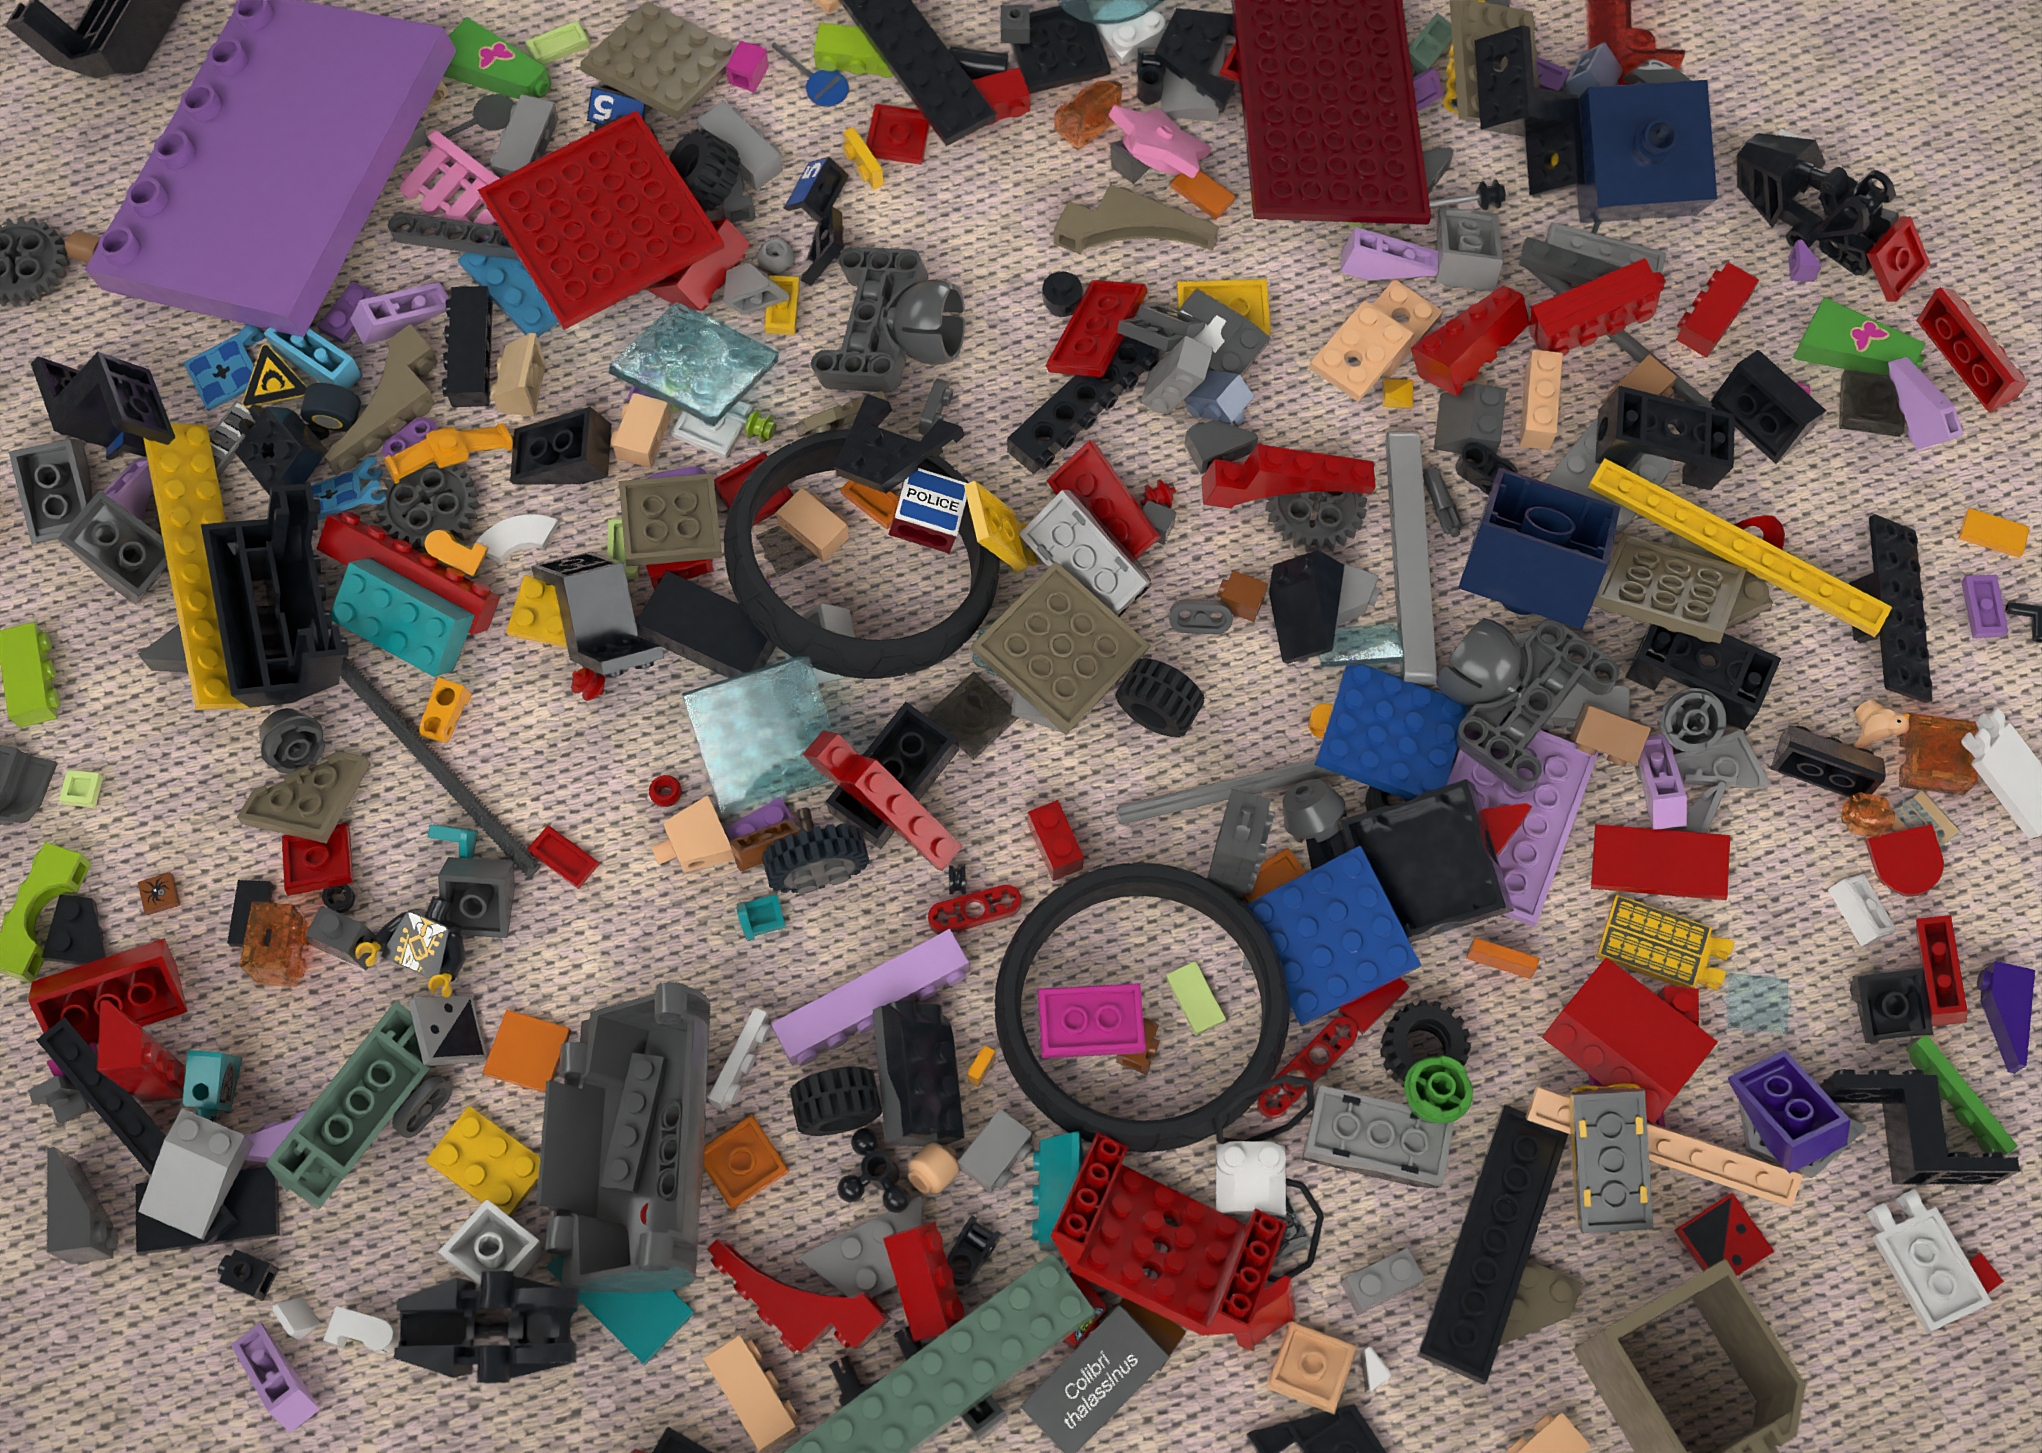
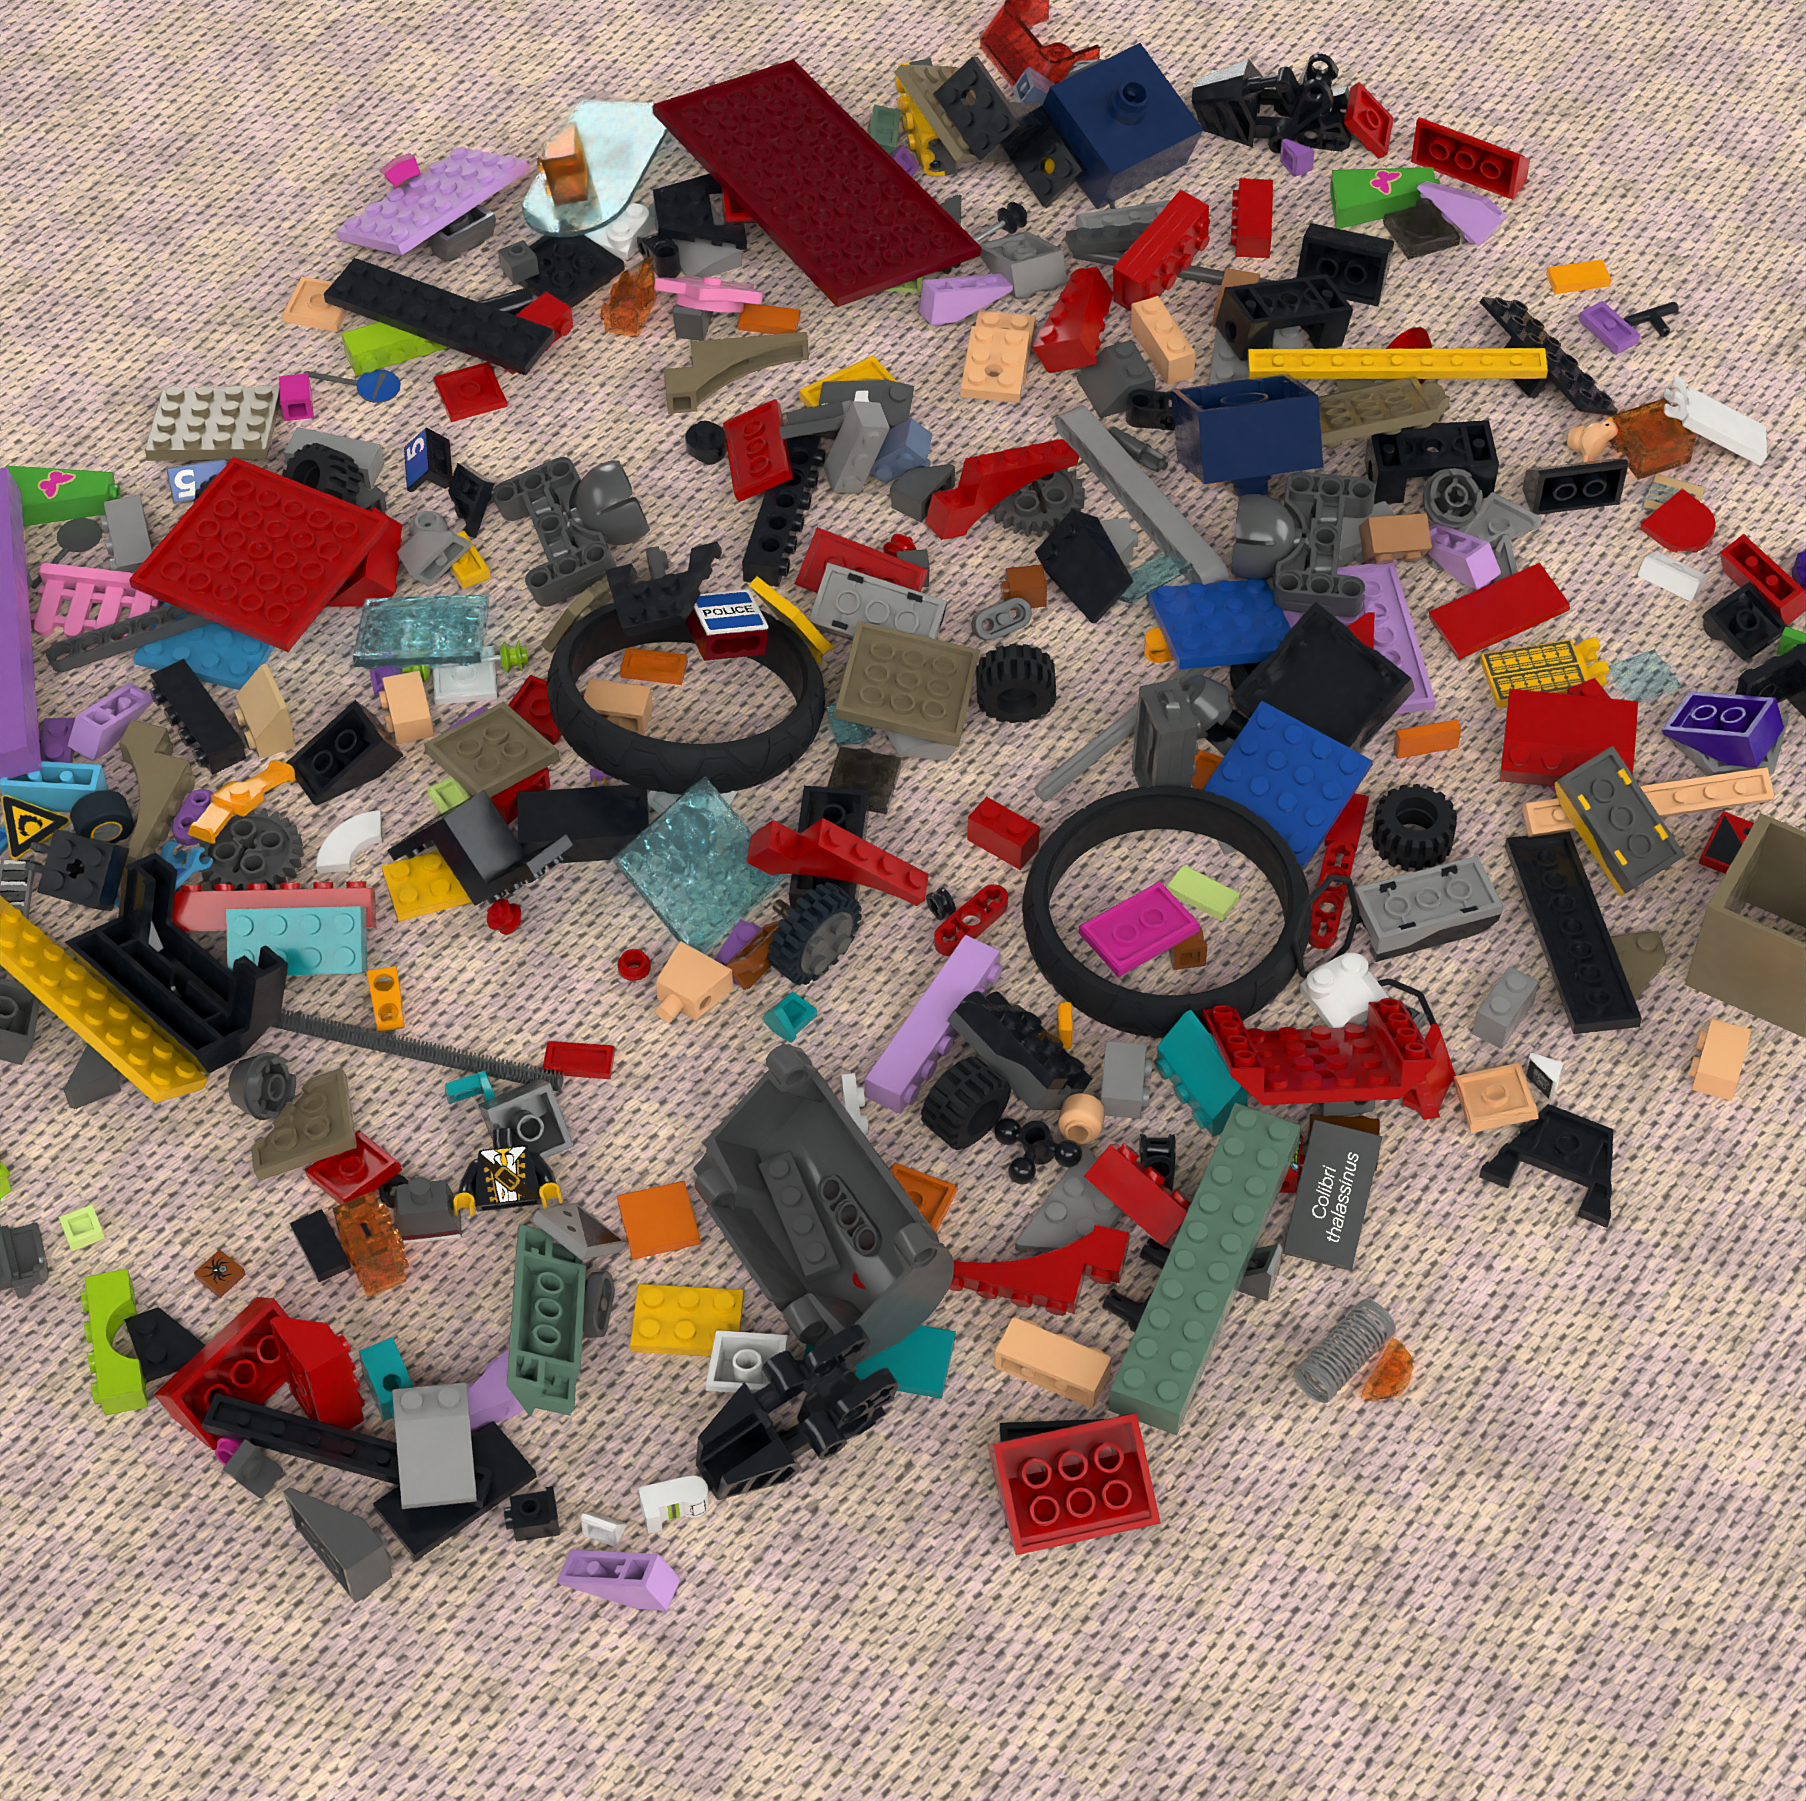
camera: 30 degrees left, 15 degrees down
(444, 547) = (297, 869): light orange leg -> none
(558, 43) = (103, 453): yellowish green tile -> none
(867, 165) = (454, 419): yellow plate -> none
(1397, 393) = (1041, 391): yellow slope -> none
(1438, 1090) = (1453, 836): bright green cone -> none
(1867, 815) = (1629, 505): clear orange head -> none

